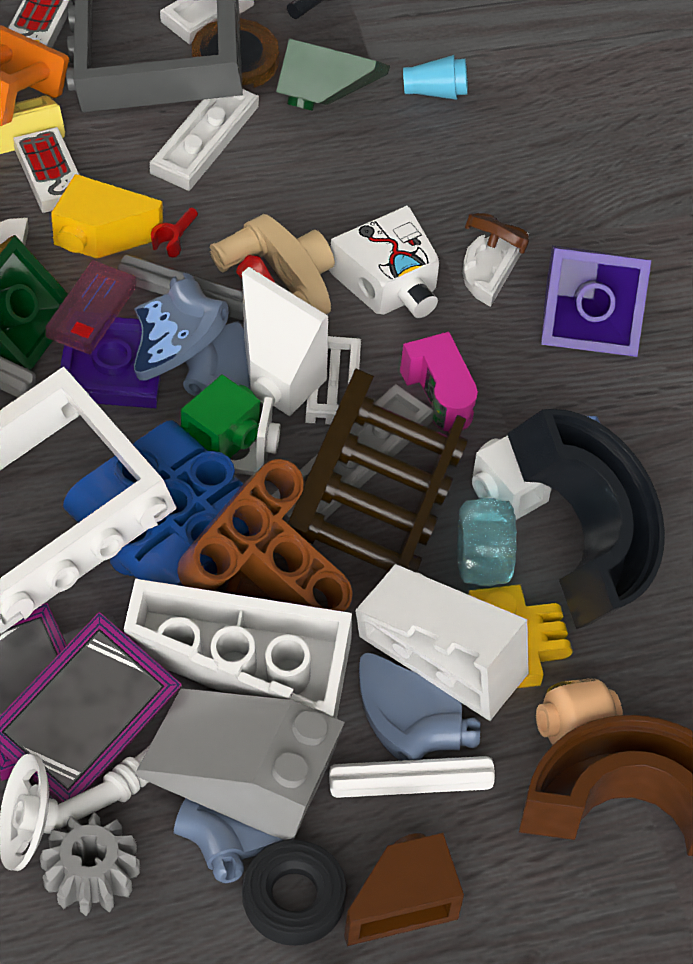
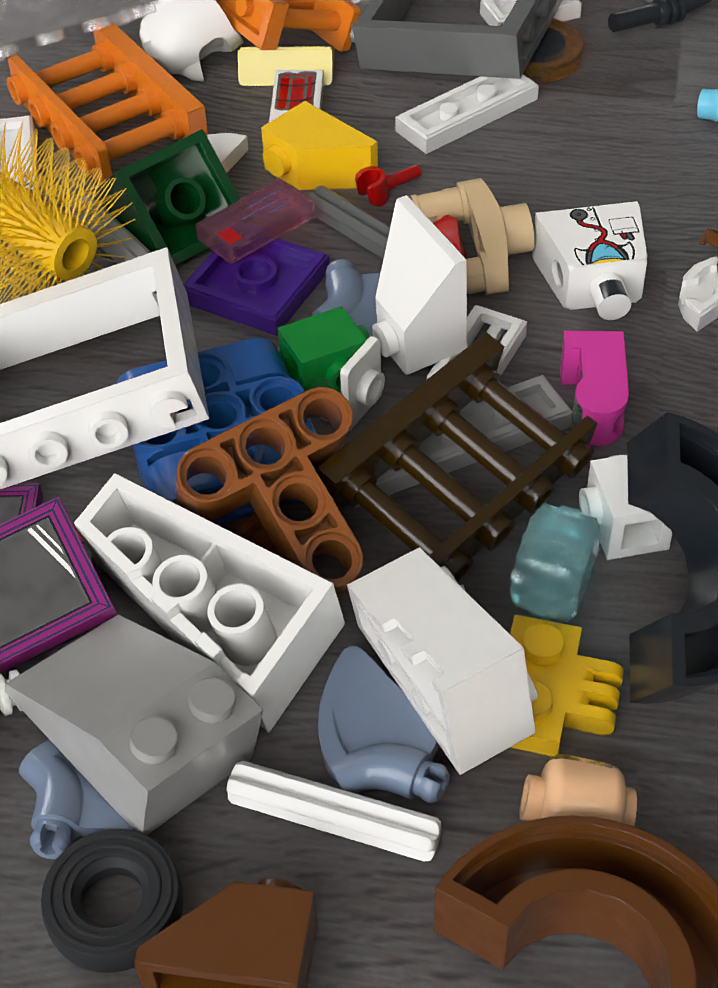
camera: 30 degrees right, 5 degrees down
(177, 327) = (328, 257): sand blue arm -> none
(324, 74) = (617, 75): slope -> none

